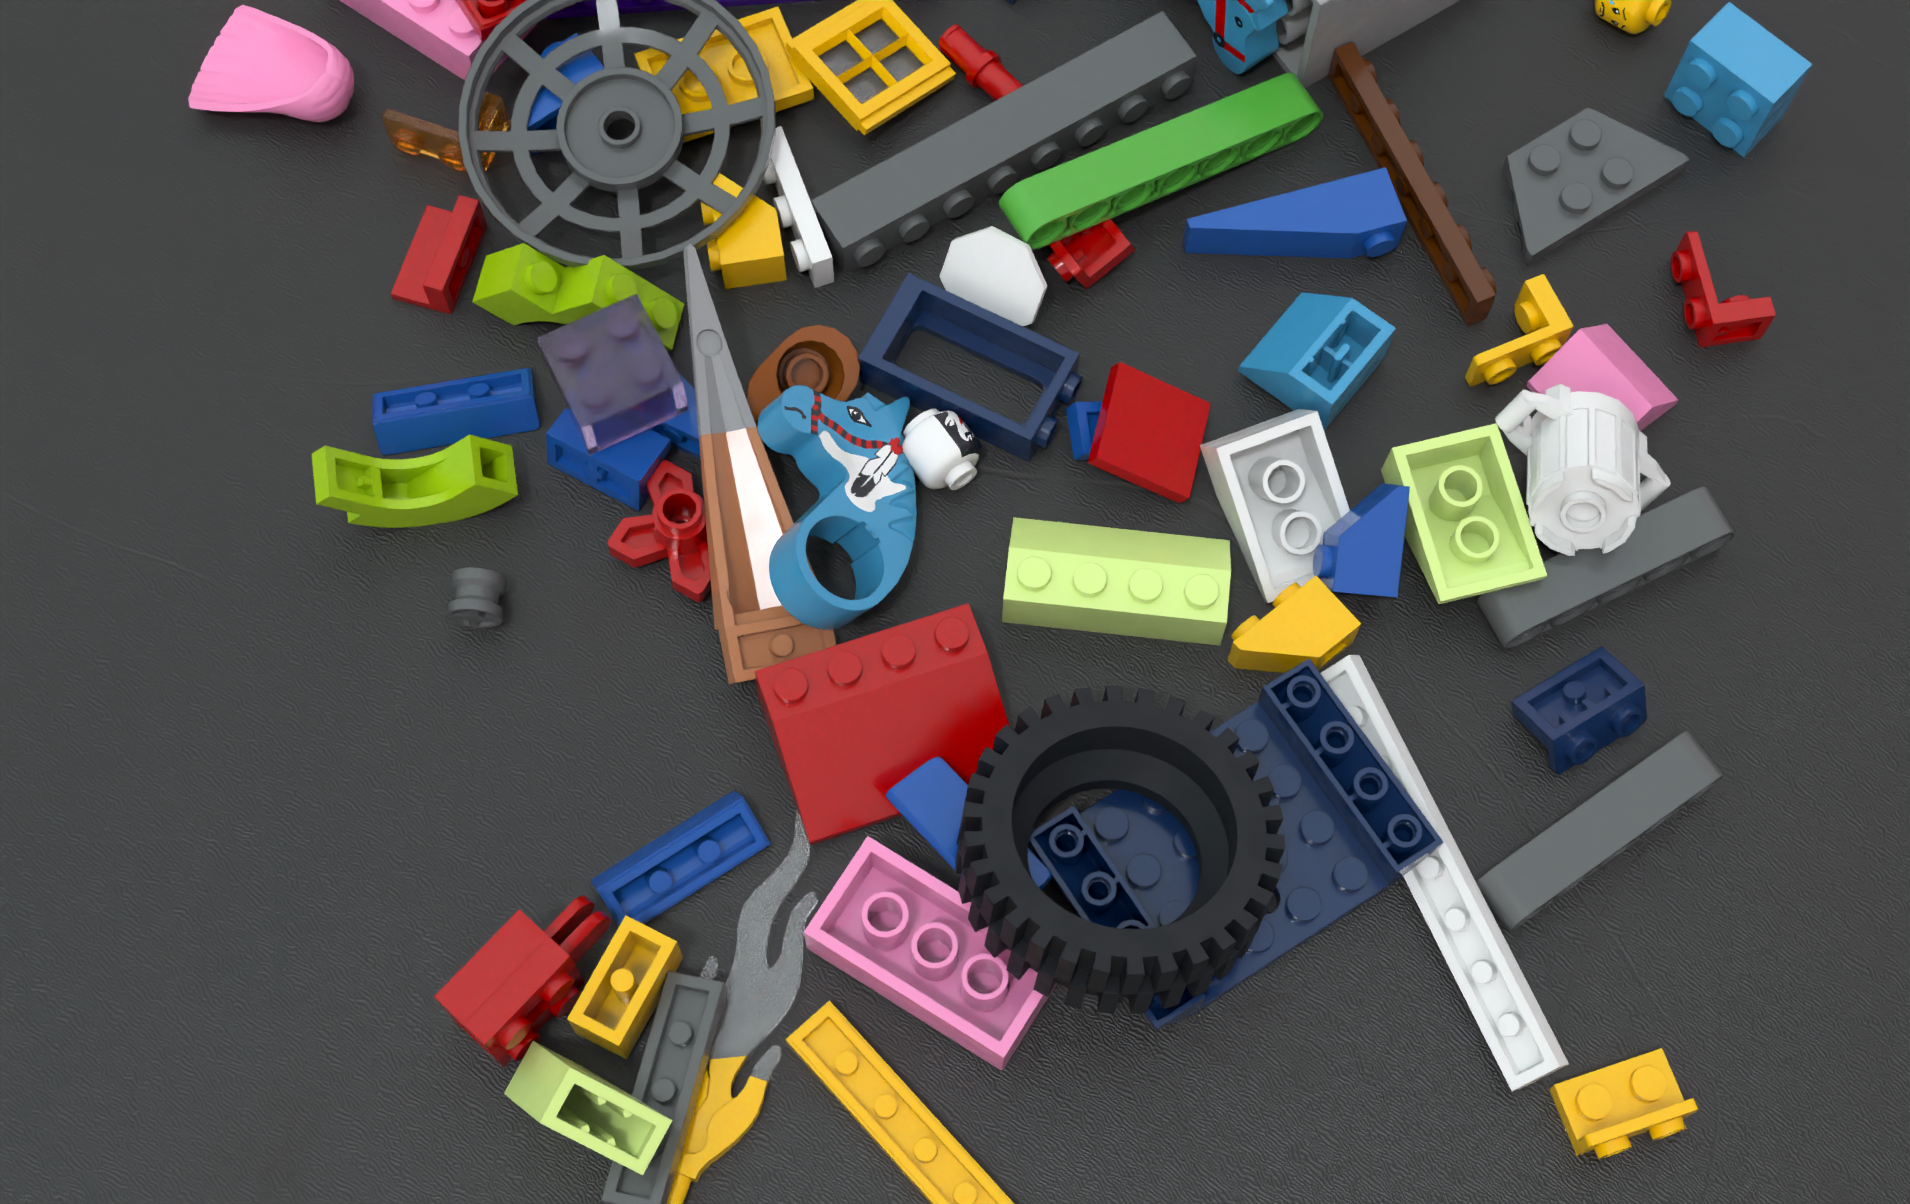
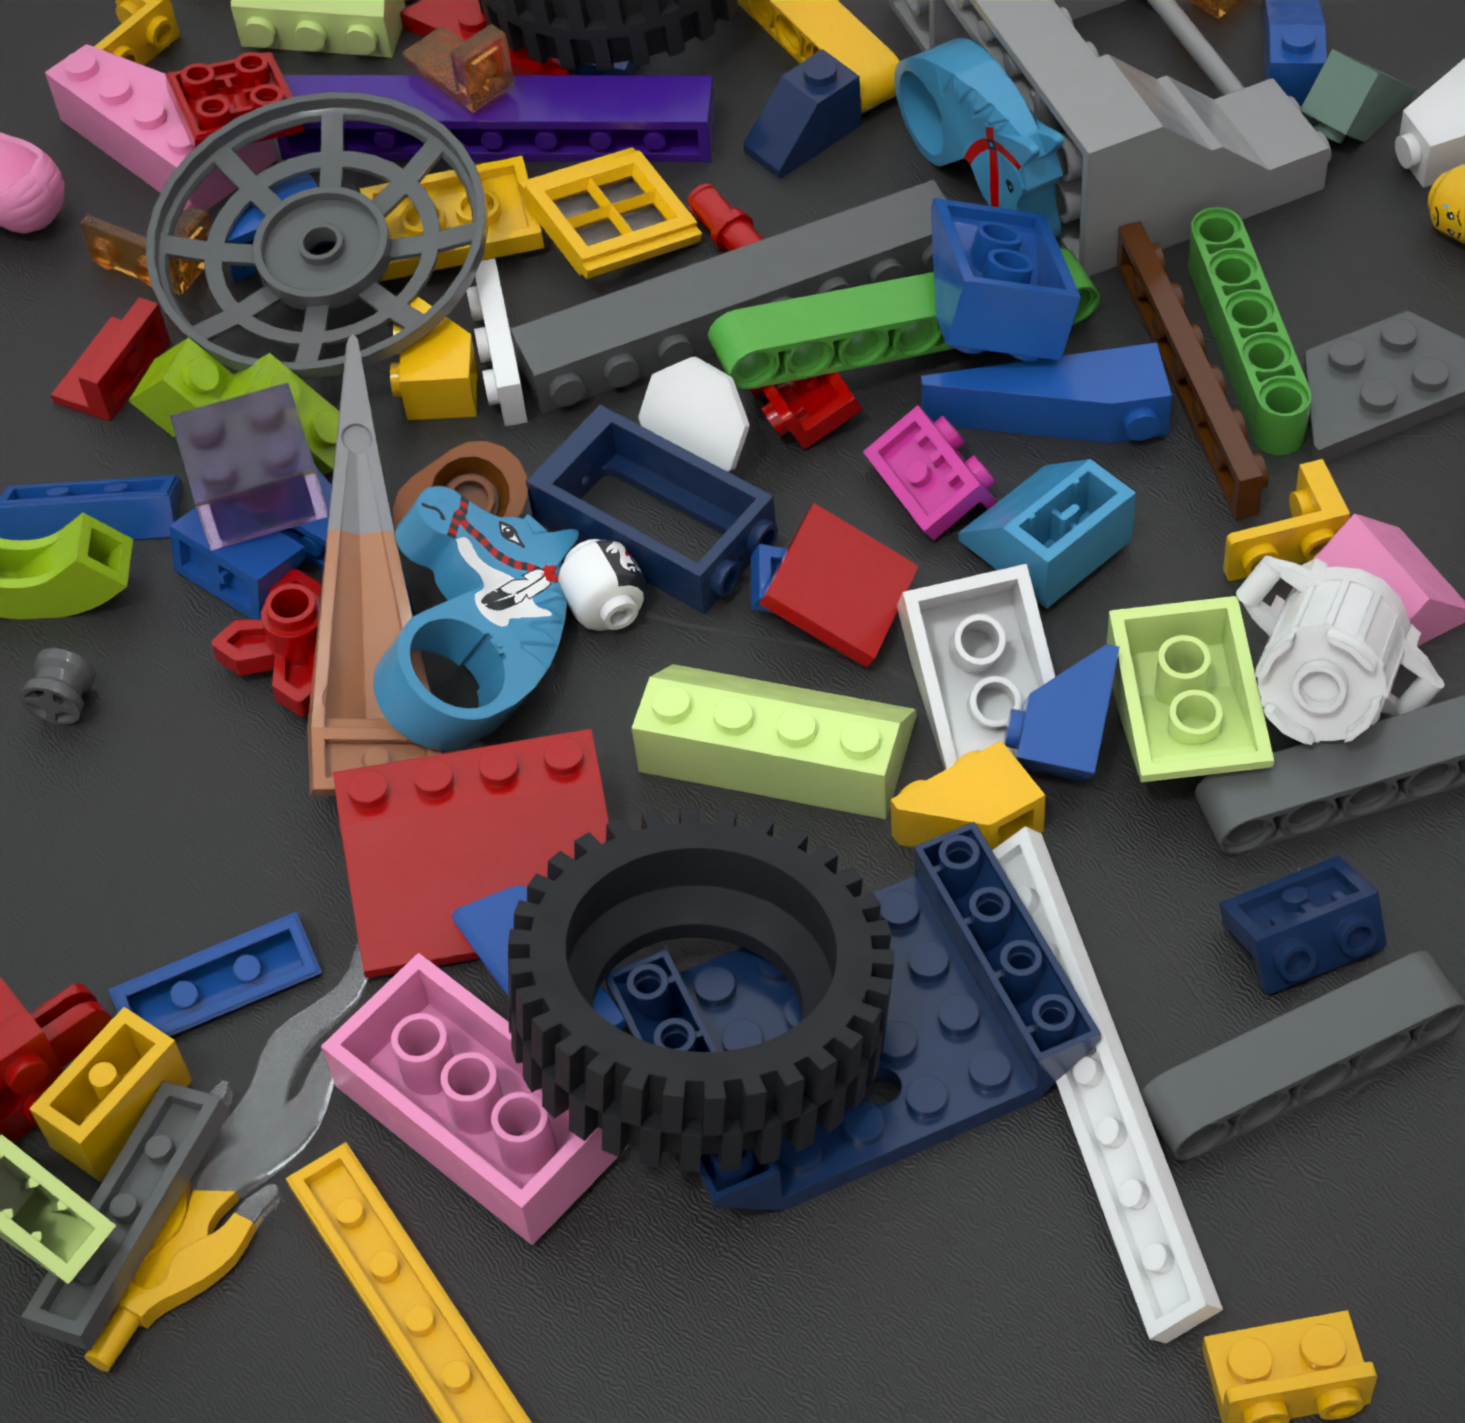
camera: 15 degrees right, 15 degrees down
(1205, 309) = (929, 473): none -> dark pink bracket
(1248, 123) = (1000, 281): none -> blue slope
(1454, 160) = (1249, 331): none -> bright green beam

